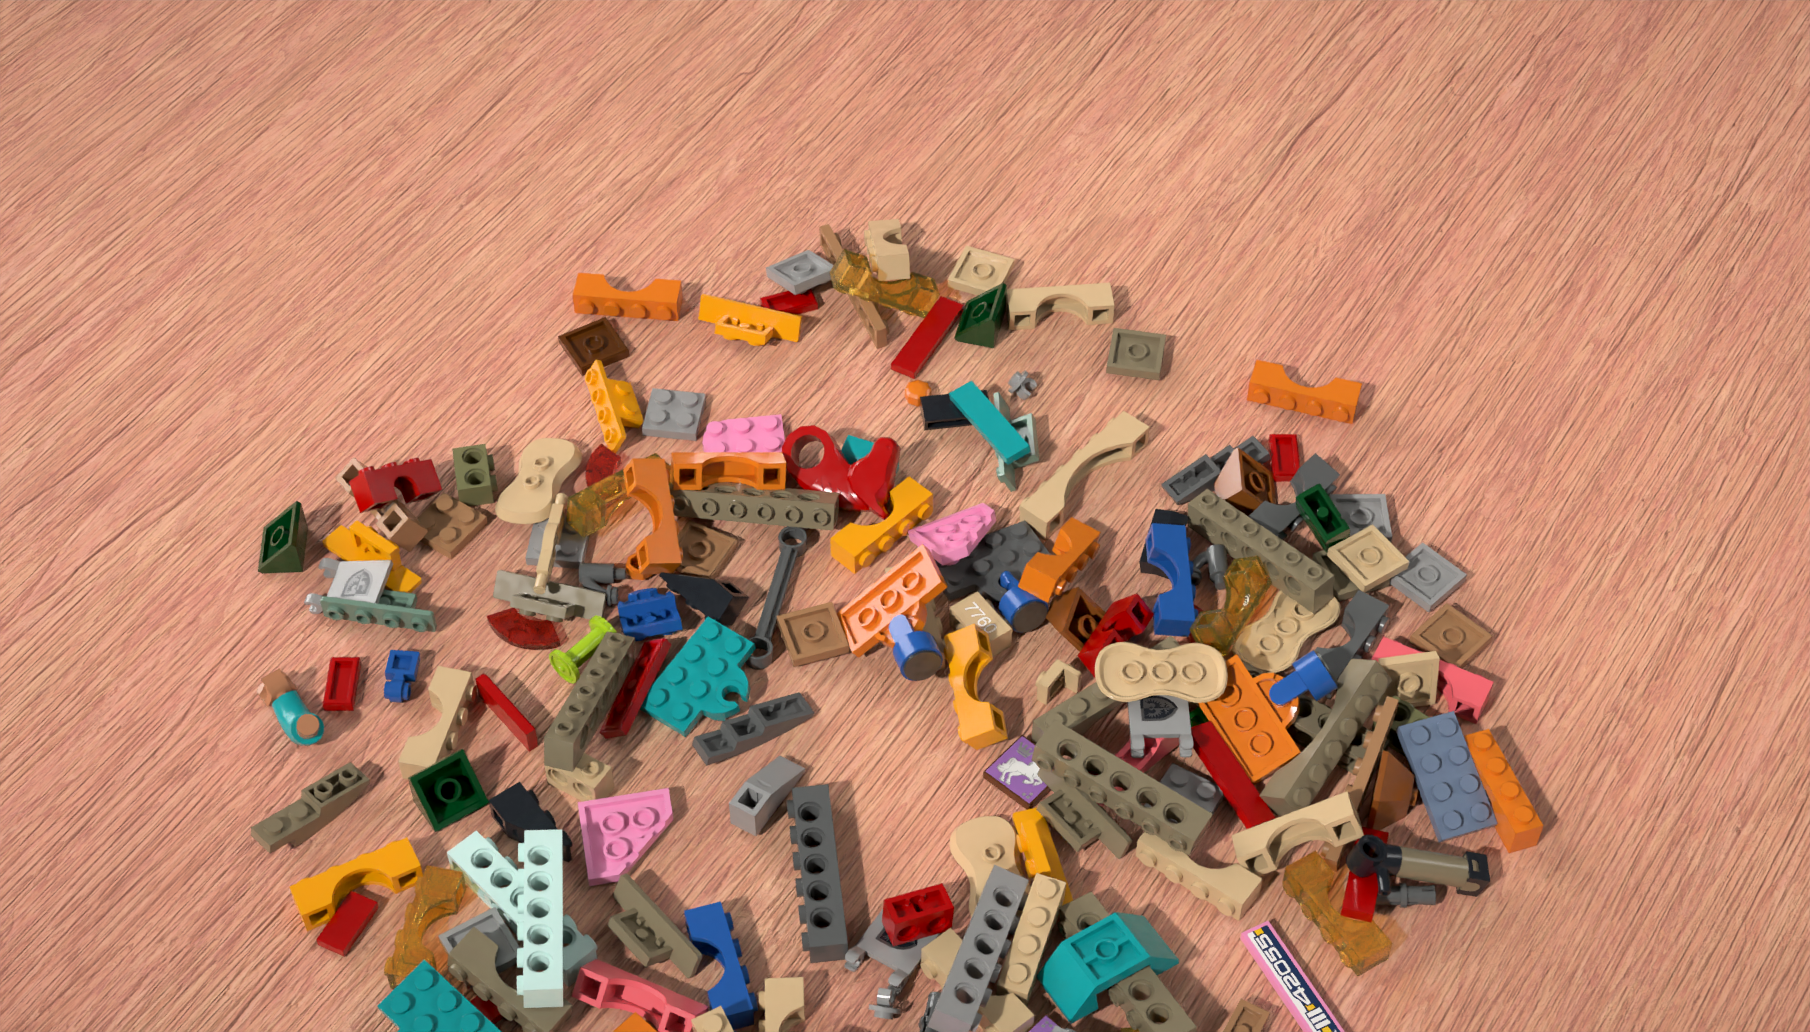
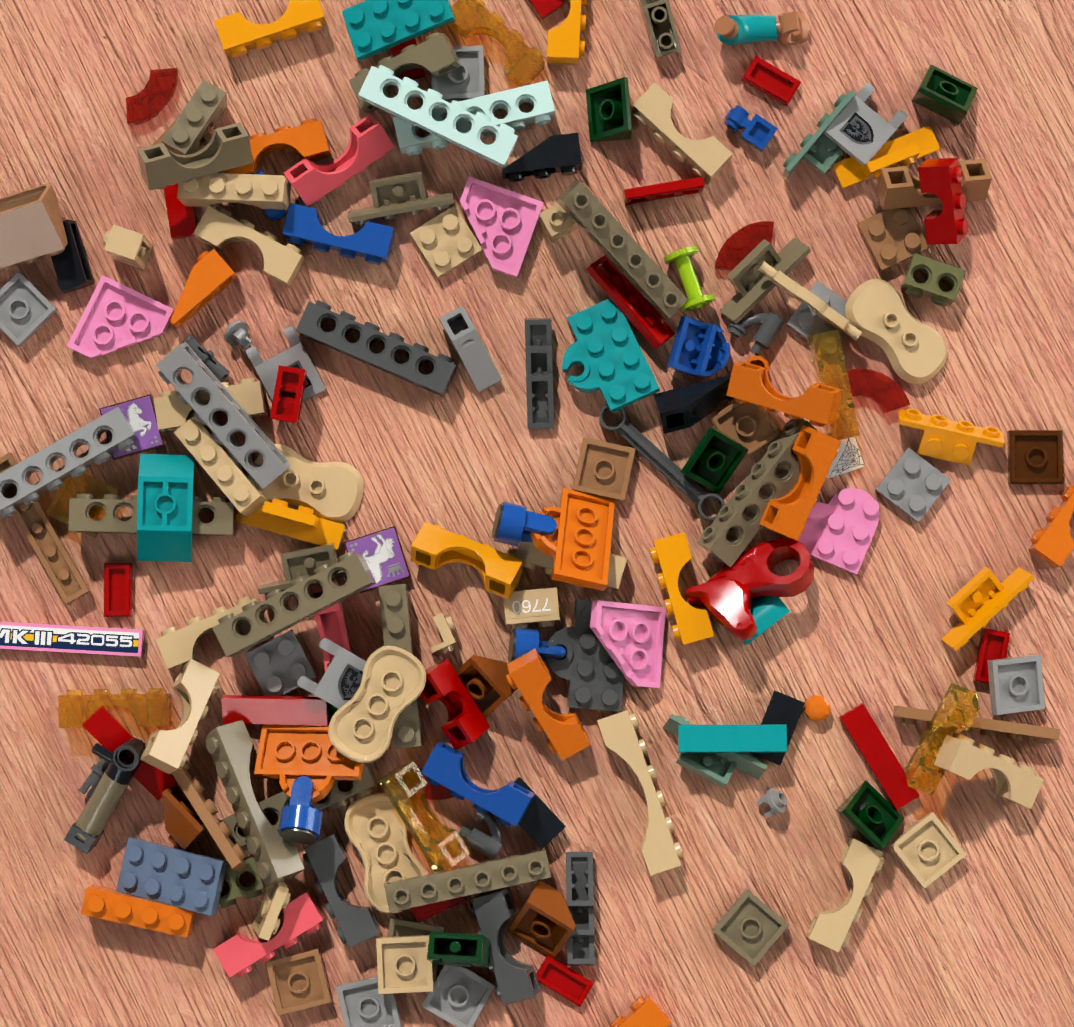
camera: 125 degrees right, 35 degrees up
(670, 872) = (446, 242): none -> tan plate
(746, 556) = (714, 460): none -> dark green slope
(1219, 981) = (118, 589): none -> red tile

